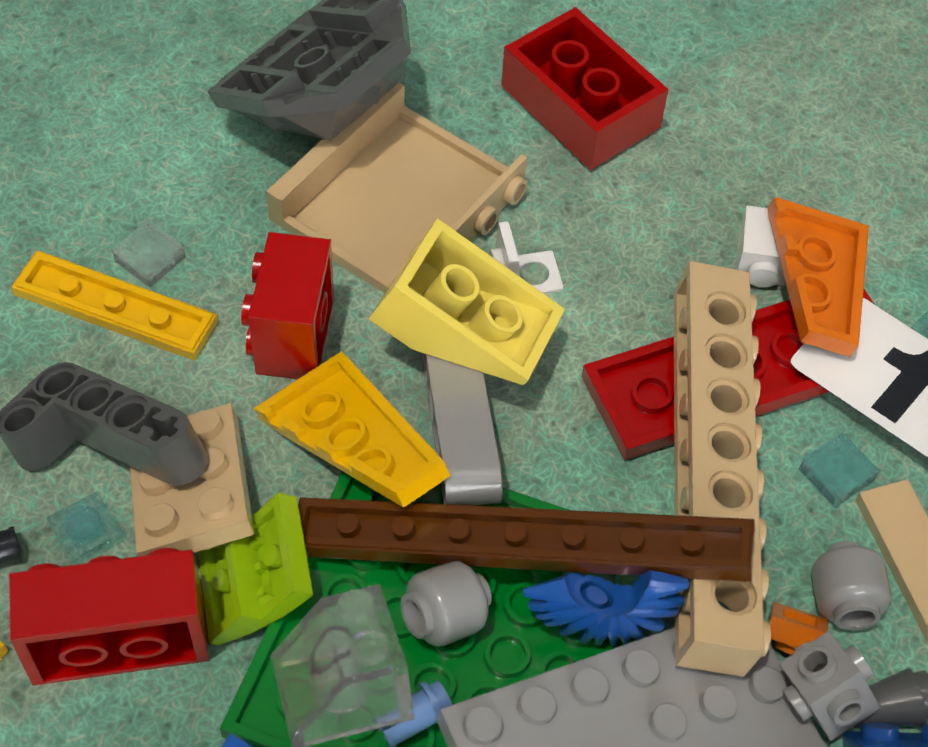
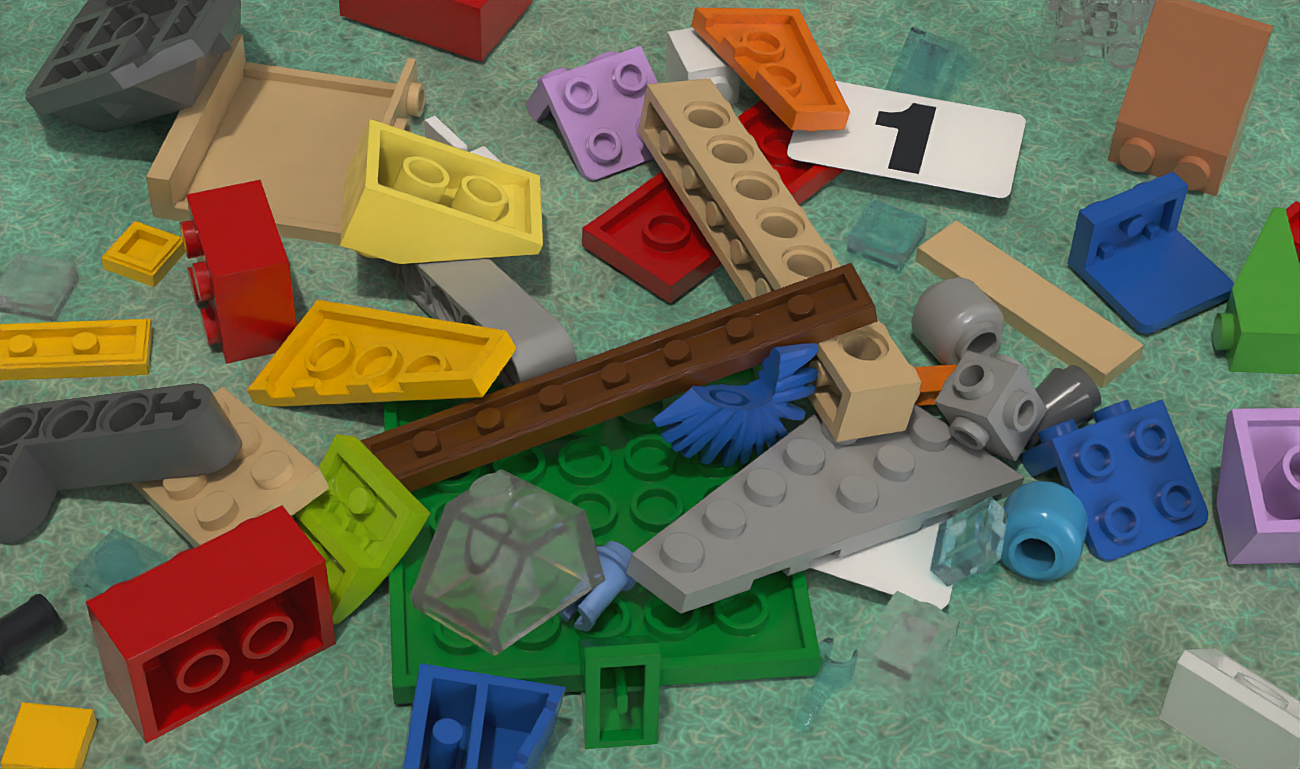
camera: 25 degrees left, 10 degrees down
(237, 250) = (144, 254): none -> yellow tile
(446, 603) = (577, 467): light grey head -> none
(654, 255) = (598, 110): none -> lavender bracket

